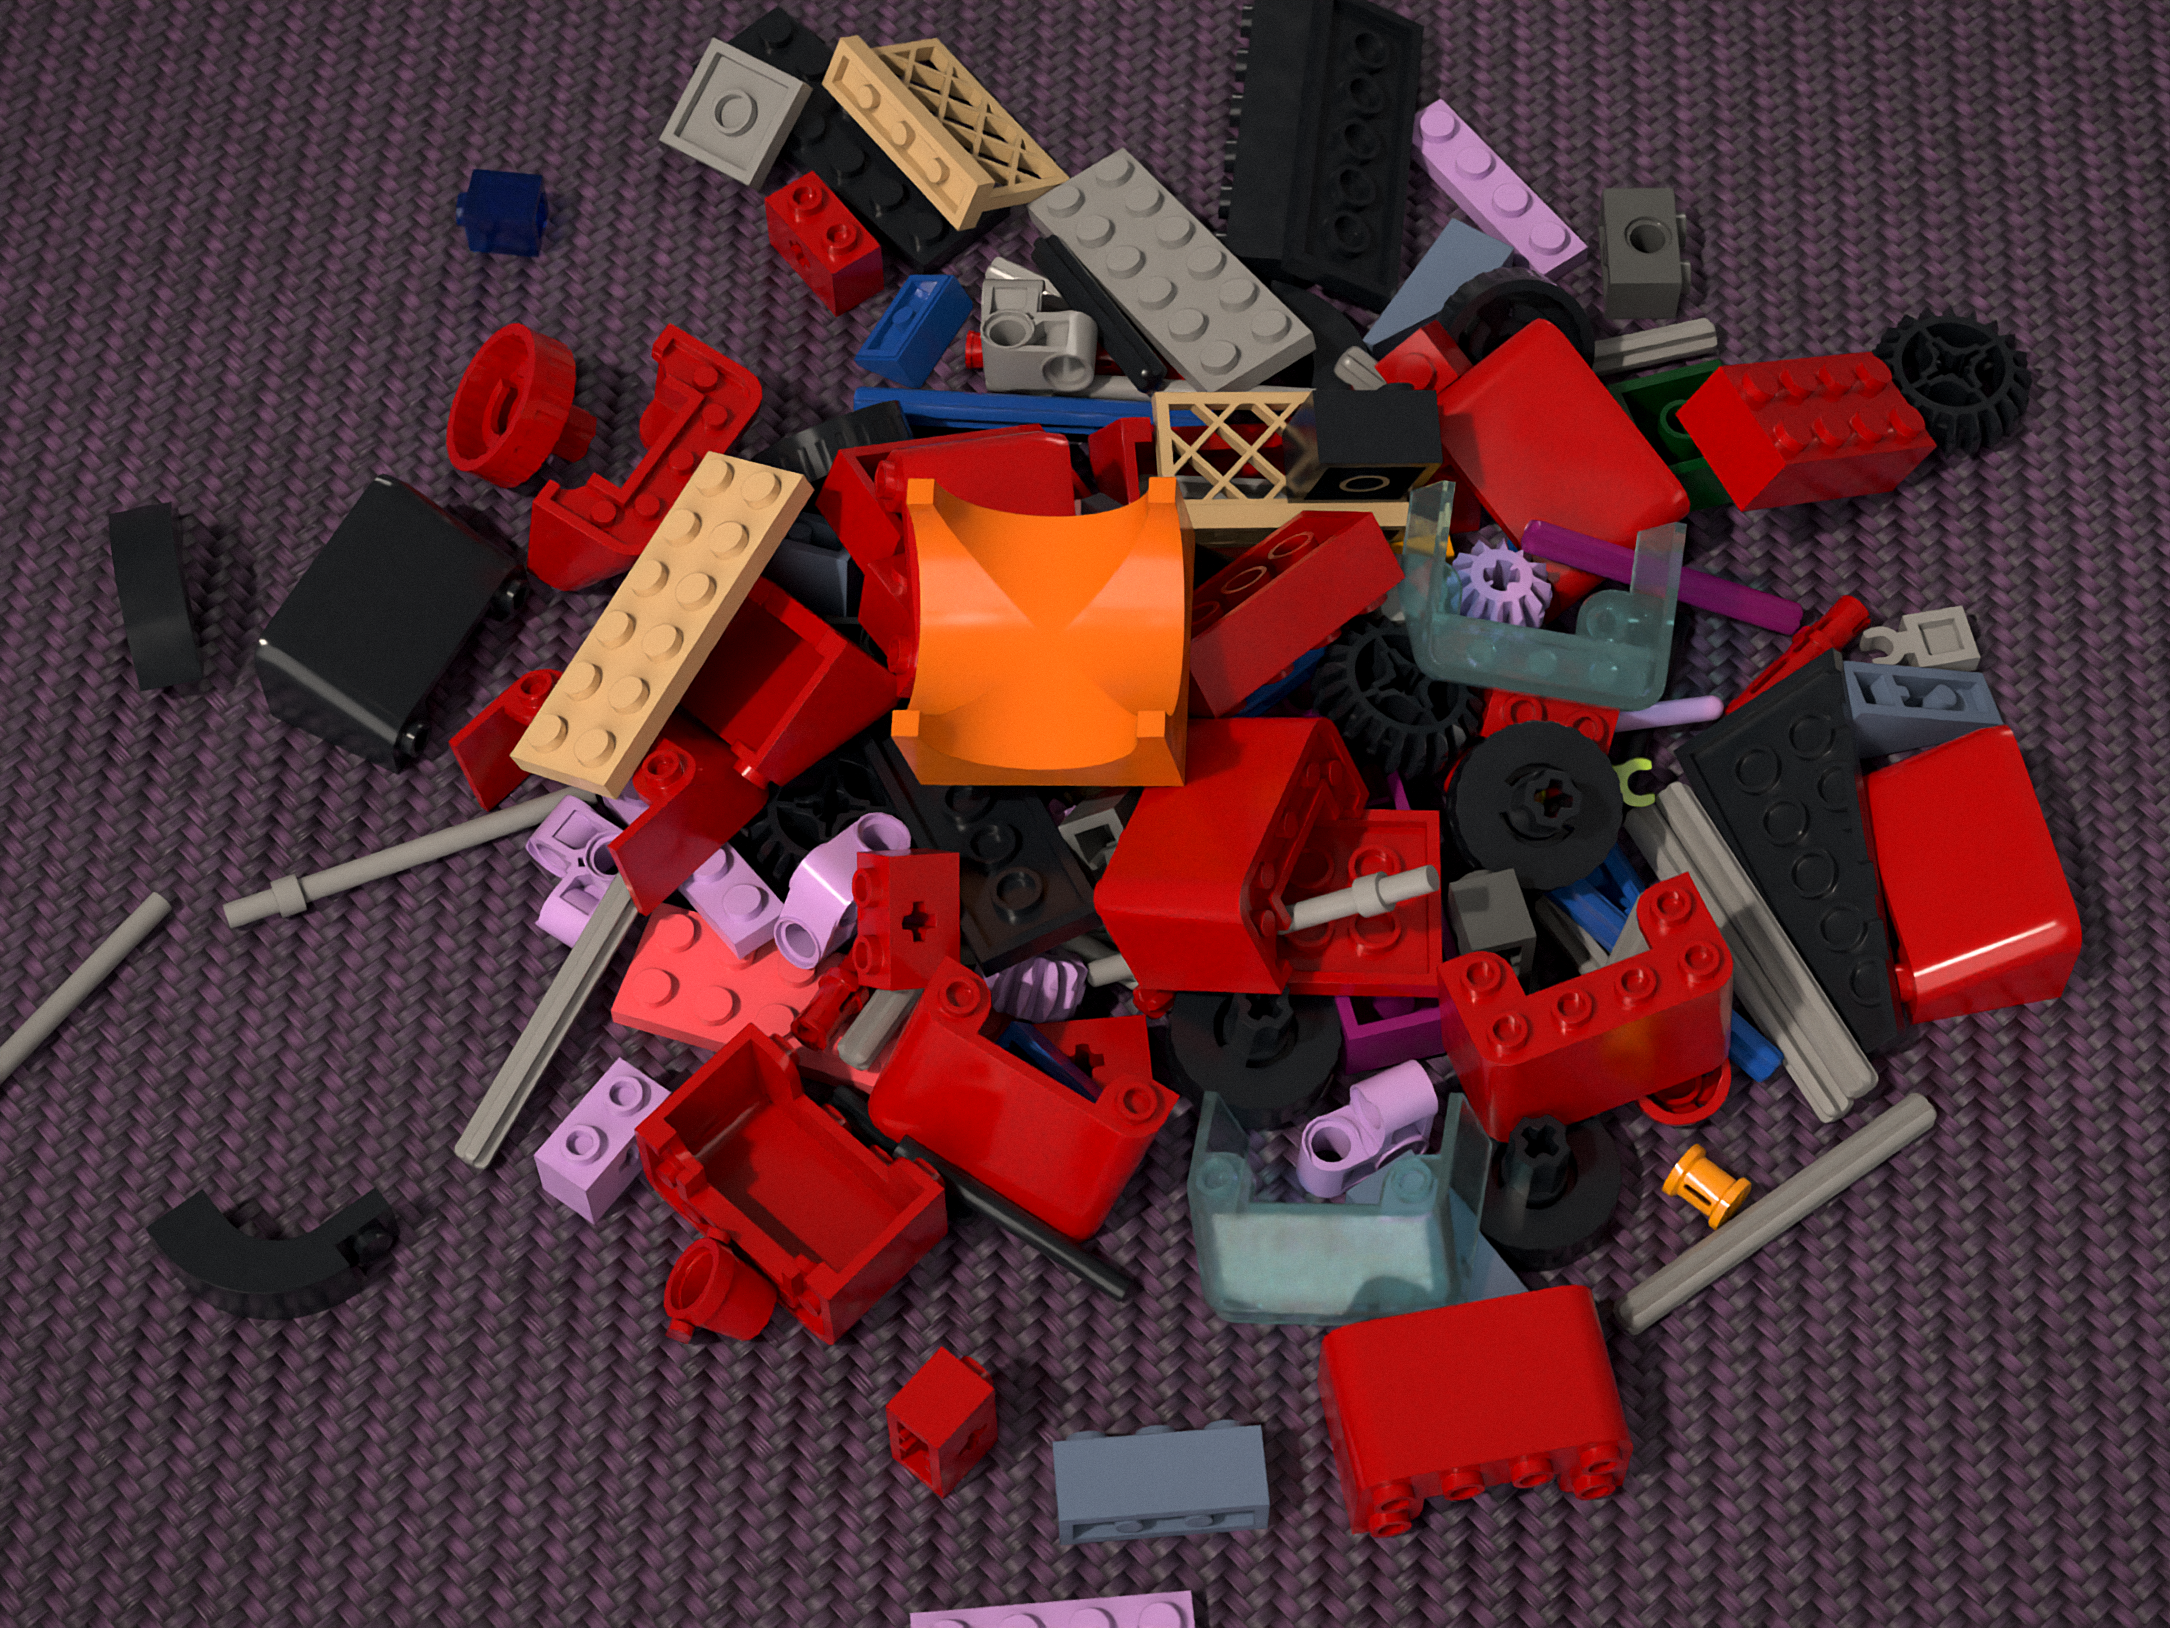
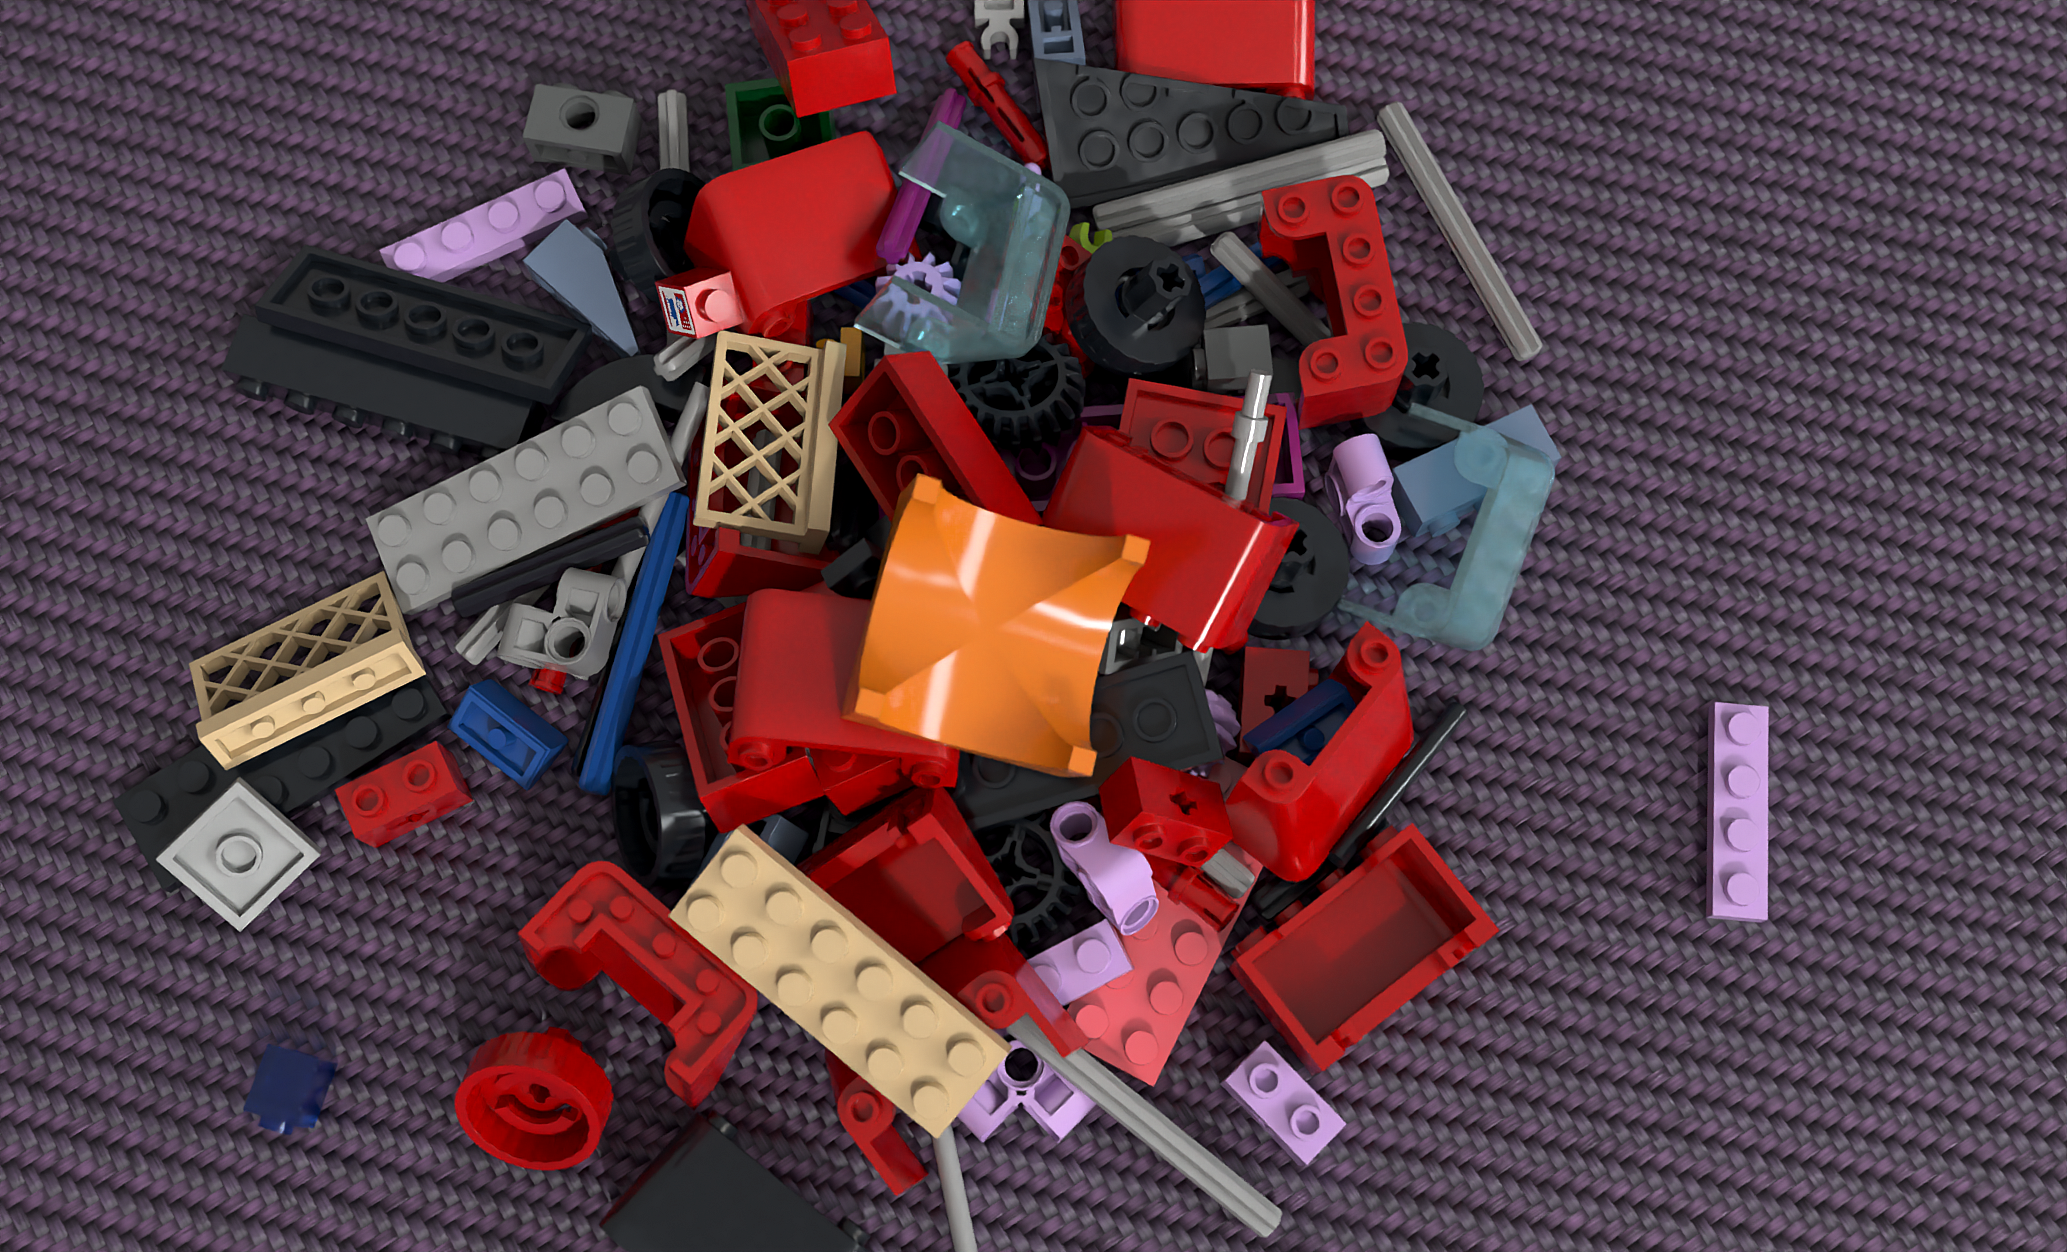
camera: 80 degrees left, 15 degrees up
(717, 1292) = (1435, 1030): red piece -> none
(943, 1420) = (1579, 859): red brick -> none
(1160, 1483) = (1630, 709): sand blue brick -> none
(1361, 444) = (789, 359): black brick -> none
(1472, 1404) = (1620, 468): red windscreen -> none
(1706, 1187) = (1437, 270): light orange bush -> none

